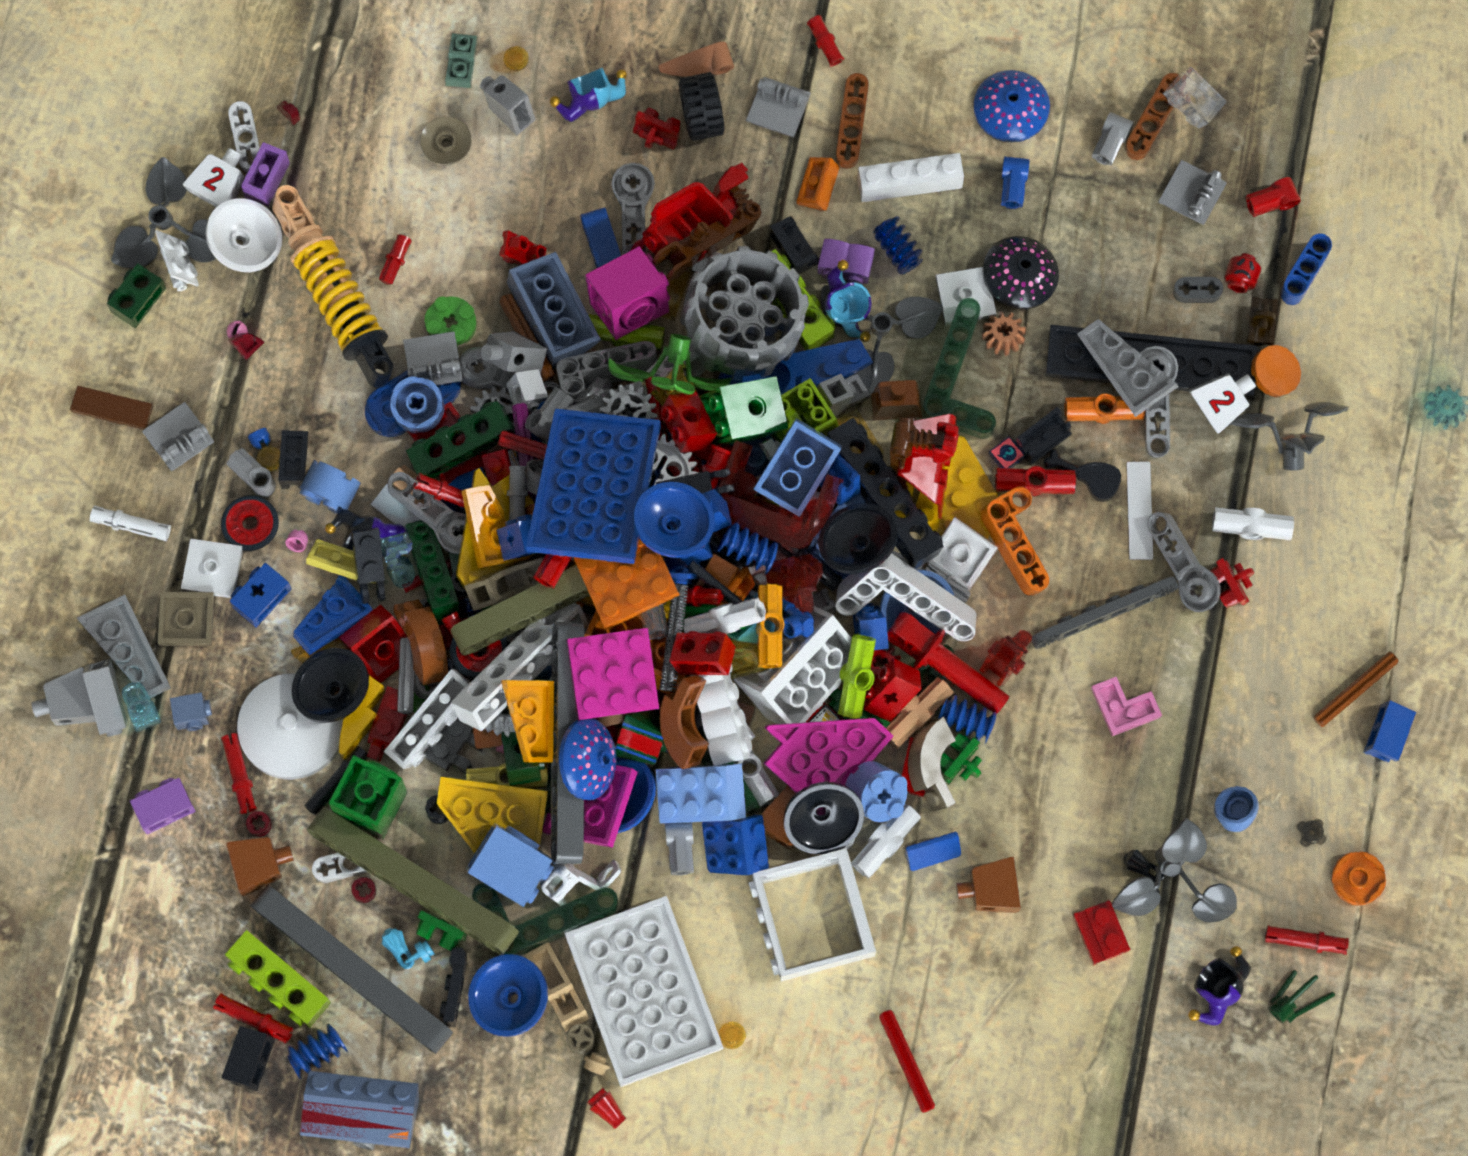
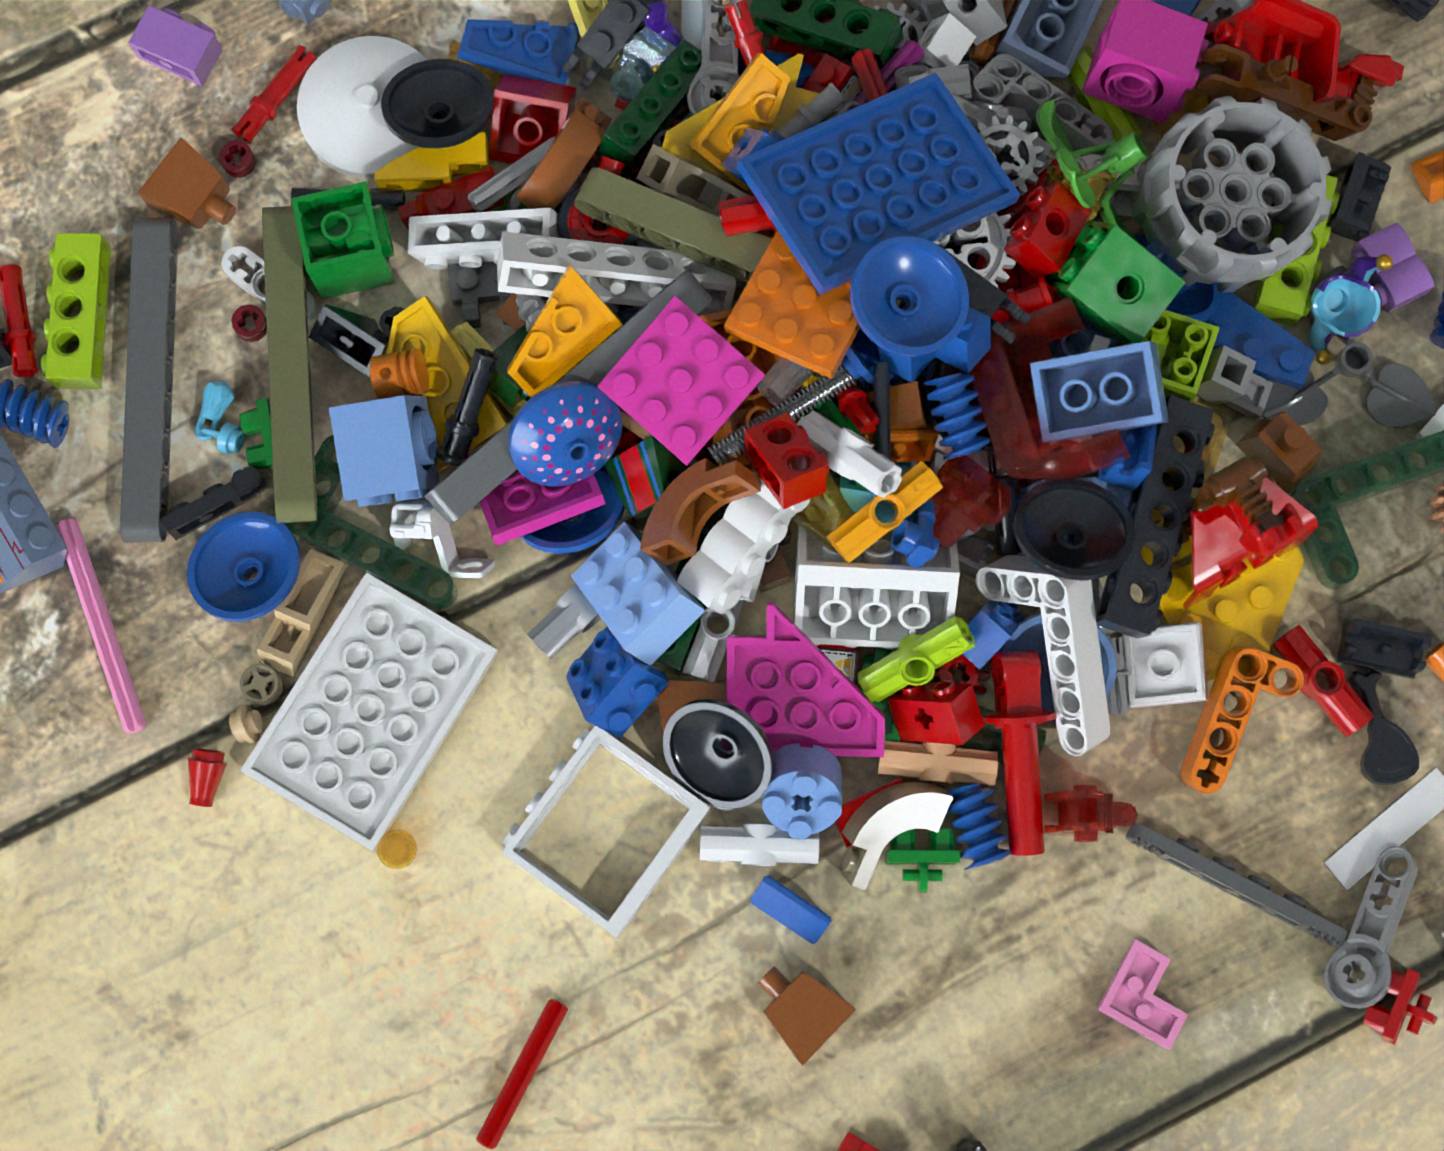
camera: 50 degrees right, 5 degrees up
(426, 837) = (349, 336): none -> black slope
(478, 1105) = (101, 627): none -> bright pink axle
(479, 820) = (399, 374): none -> orange piece
(530, 811) = (463, 423): none -> black pin
(1007, 453) = (1326, 623): tile -> none

